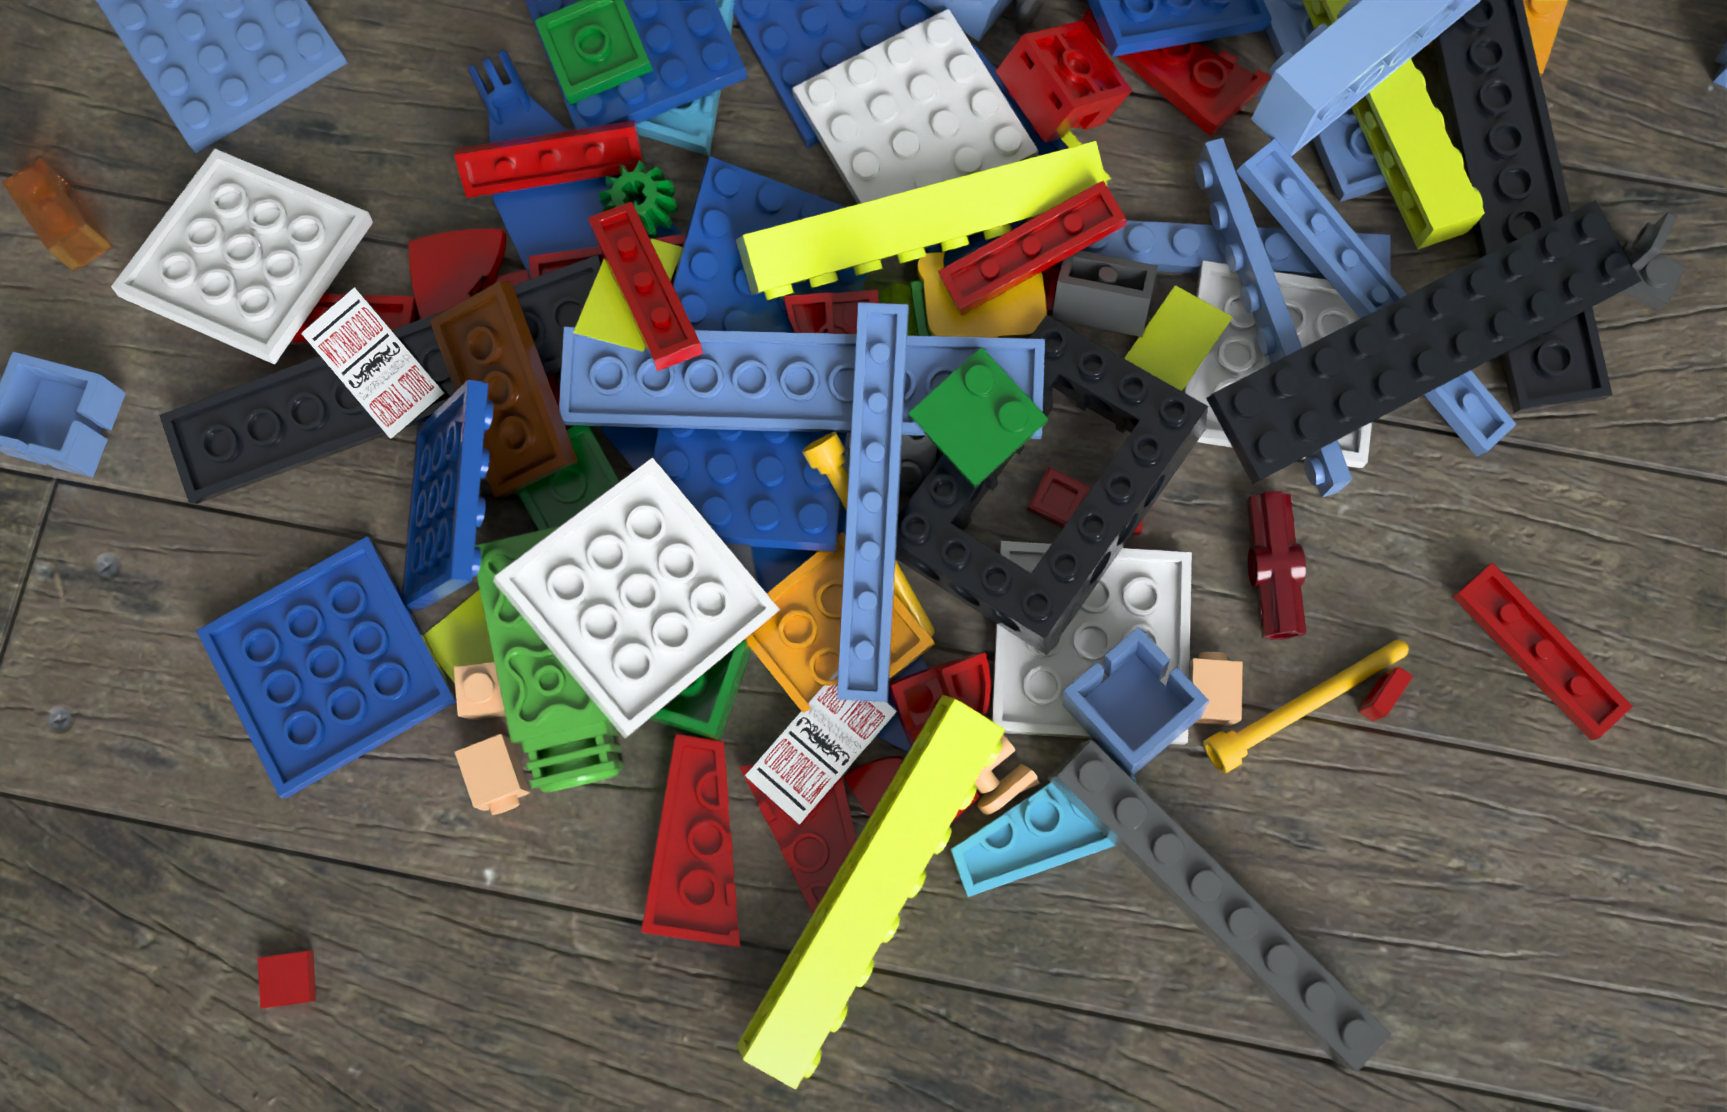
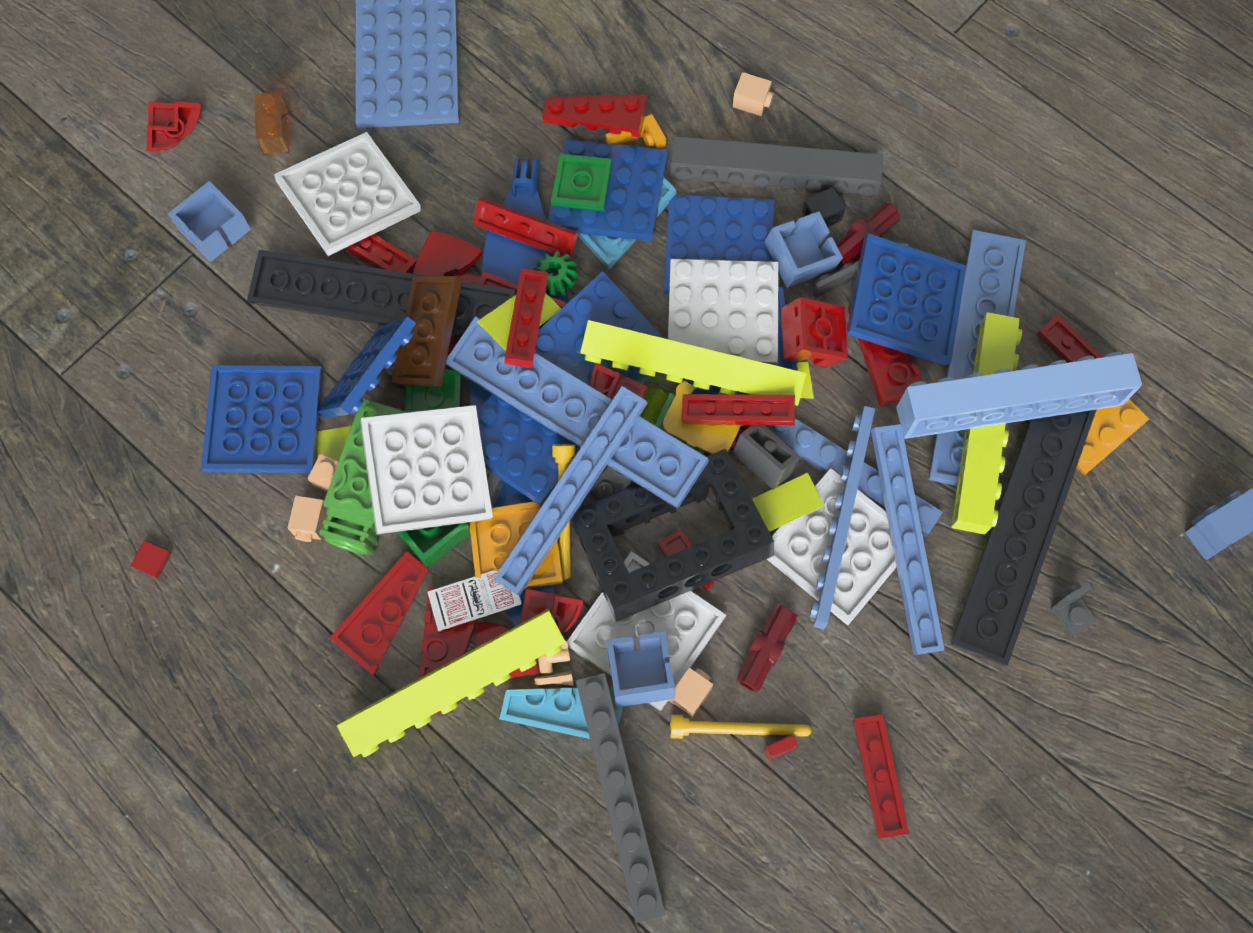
camera: 30 degrees right, 5 degrees down
(372, 363) = (374, 282): white sticker -> none
(978, 417) = (649, 478): green plate -> none
(1421, 341) = (916, 574): black plate -> none

